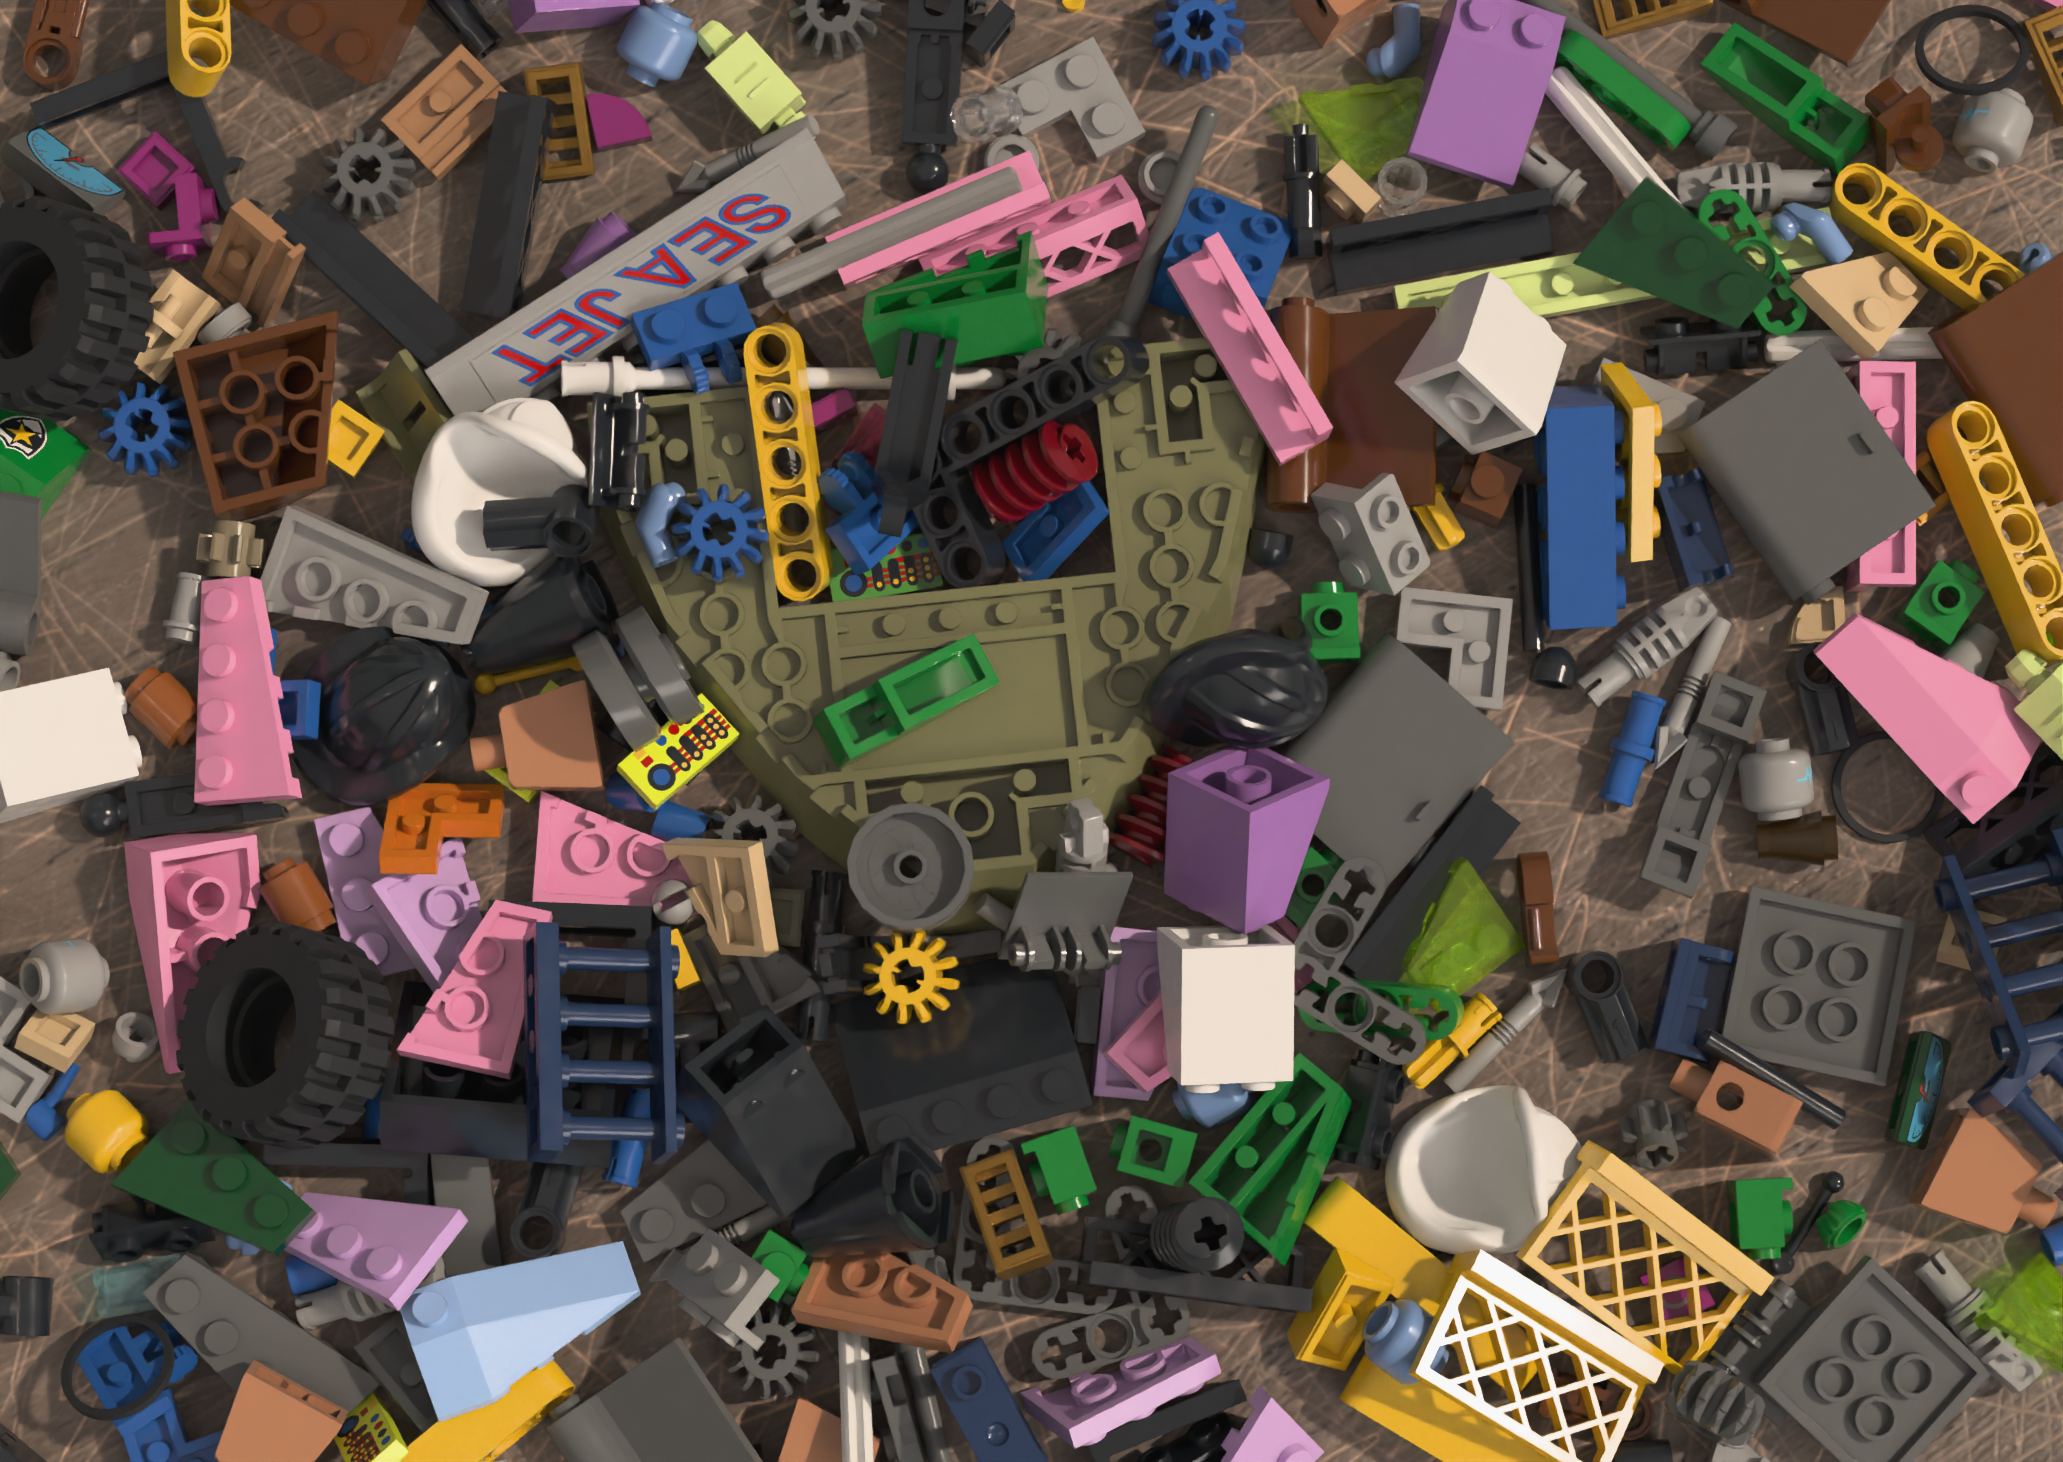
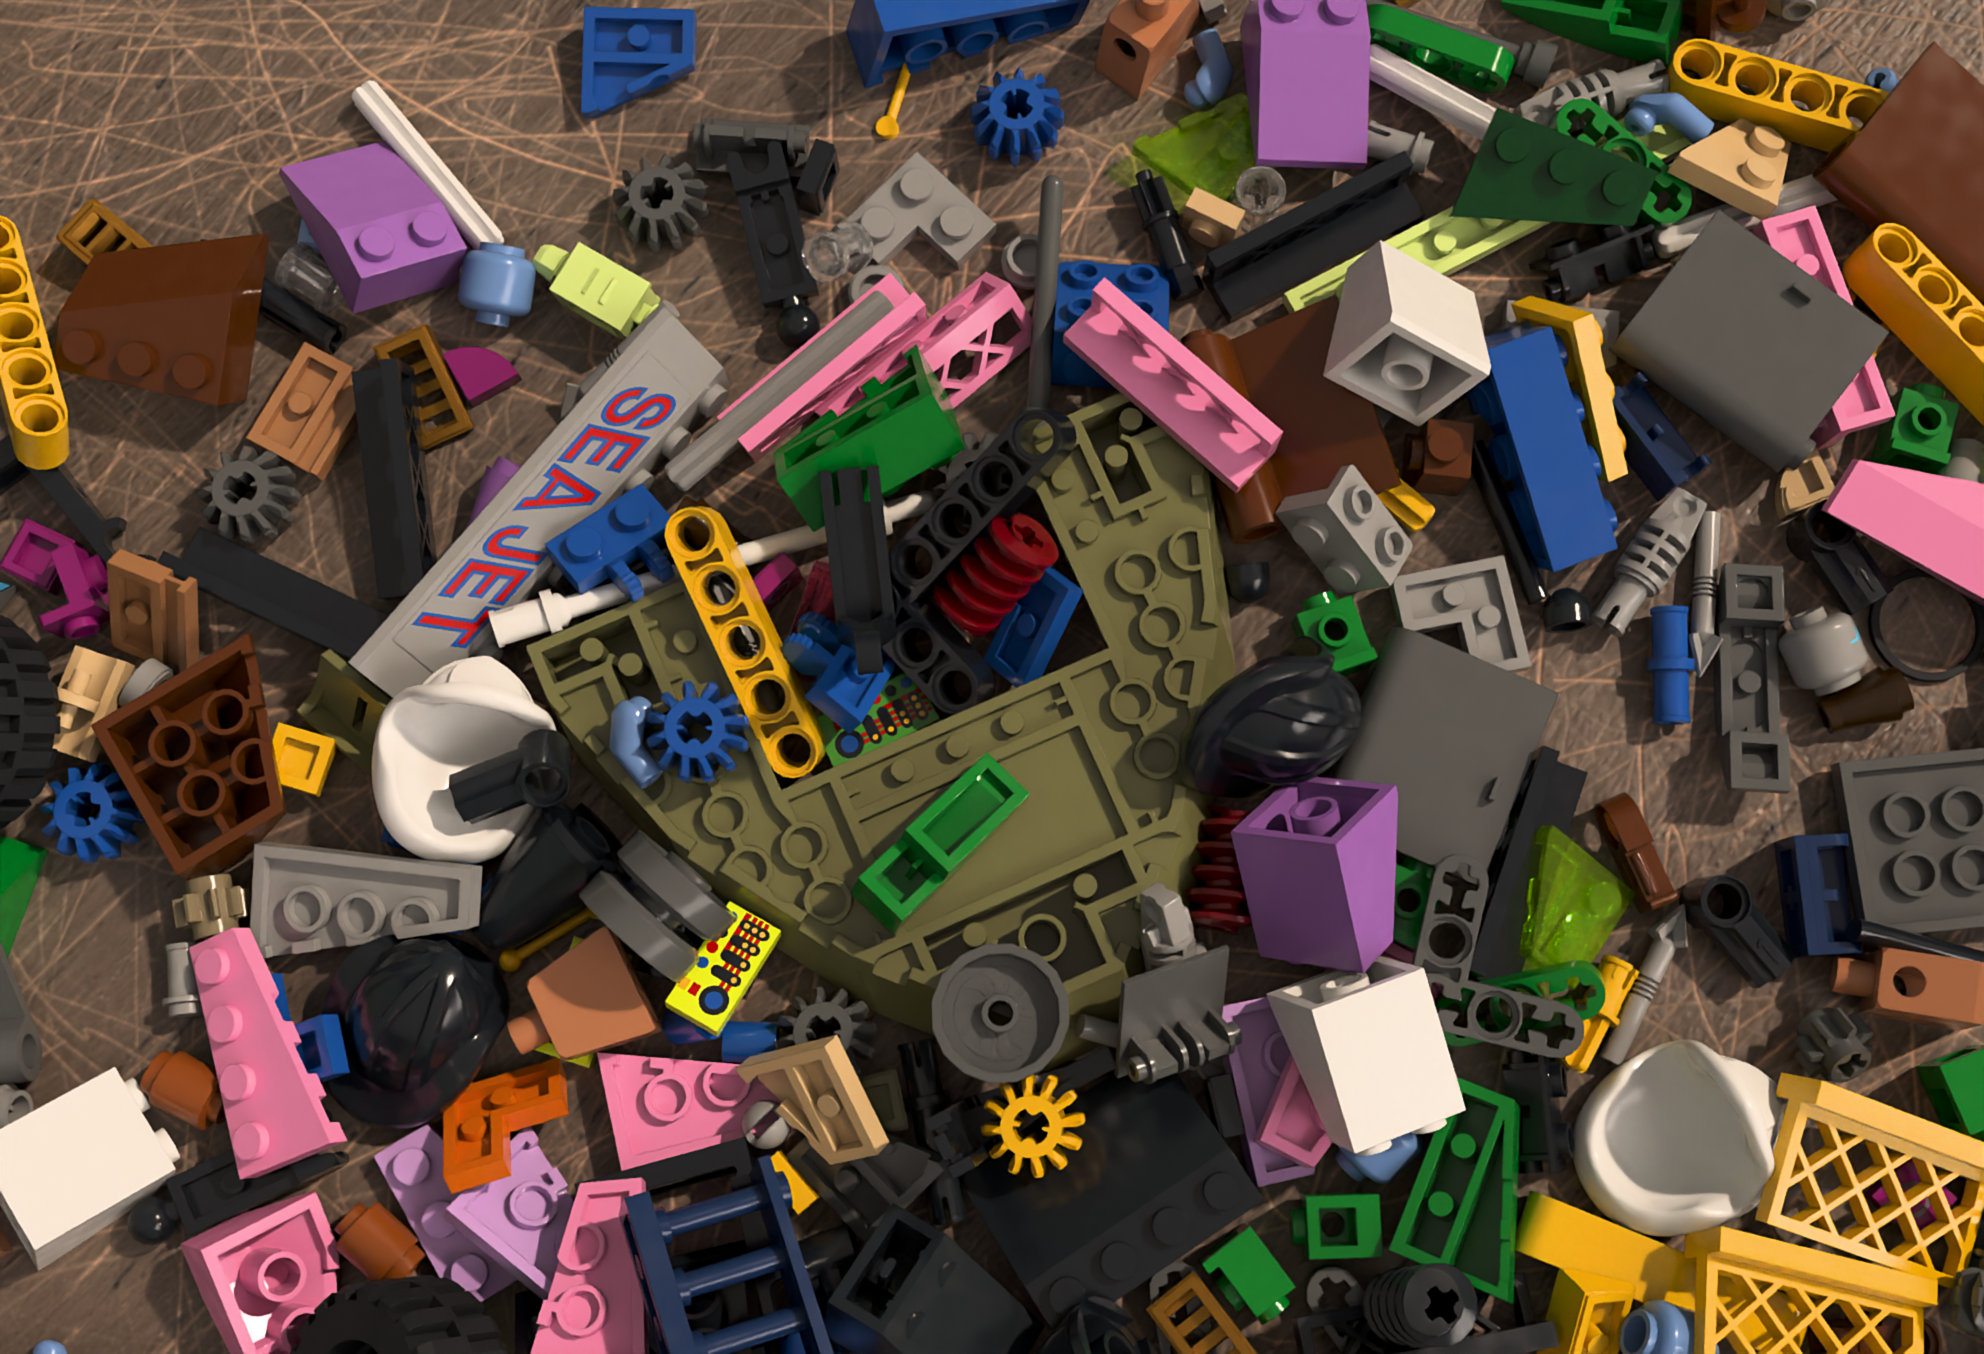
camera: 10 degrees left, 5 degrees down
(615, 464) = (566, 684): black hinge -> none

